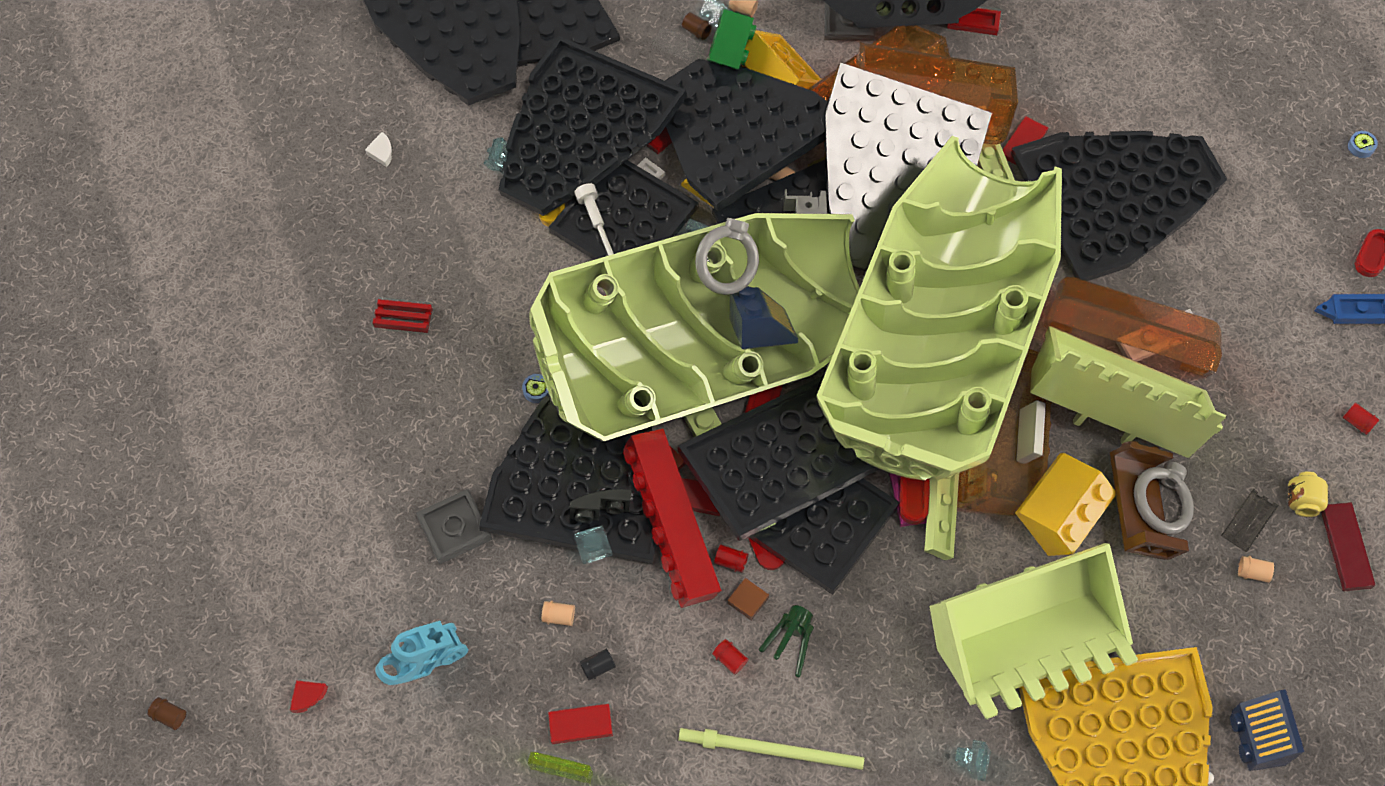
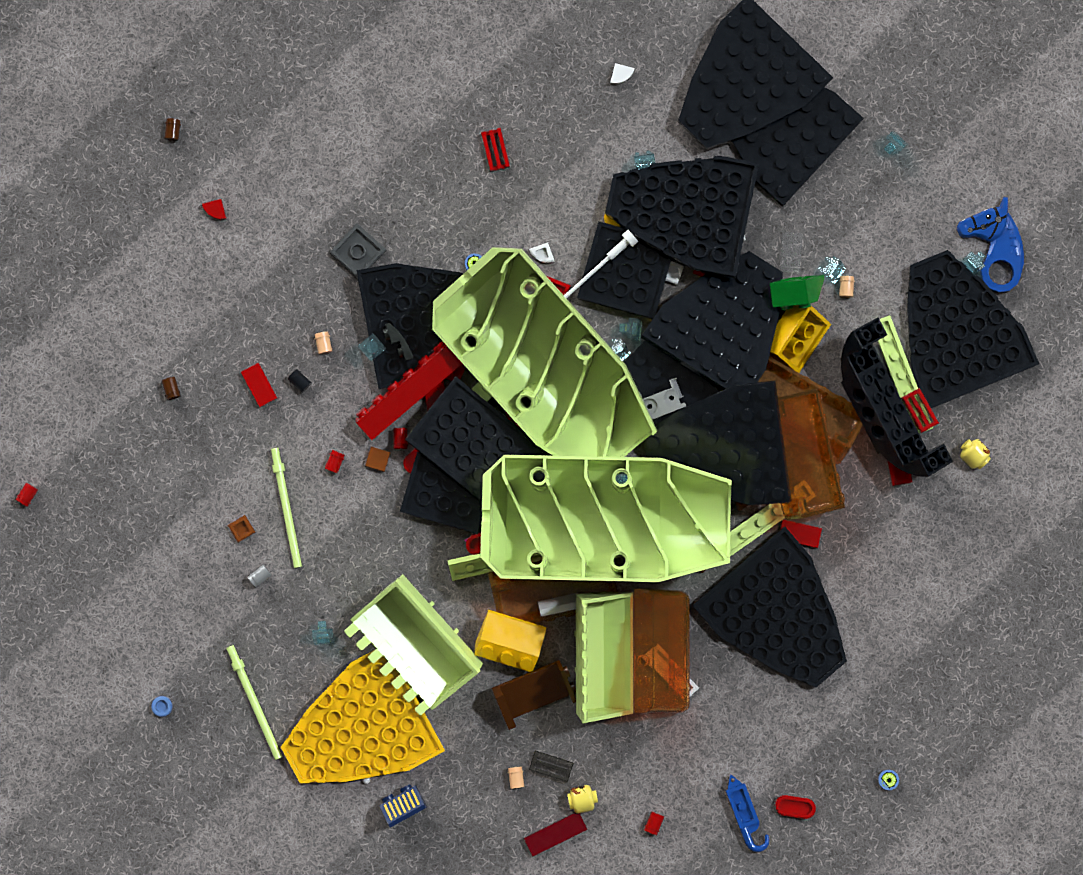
camera: 65 degrees right, 20 degrees up
(421, 652) = (263, 270): medium azure piece -> none
(560, 767) = (226, 384): clear neon green tile -> none
(697, 26) = (813, 259): reddish brown piece -> none
(736, 230) = (602, 358): light grey piece -> none
(759, 320) = (560, 398): dark blue slope -> none
(795, 624) = (372, 495): dark green plant -> none
(1172, 477) = (563, 705): light grey piece -> none

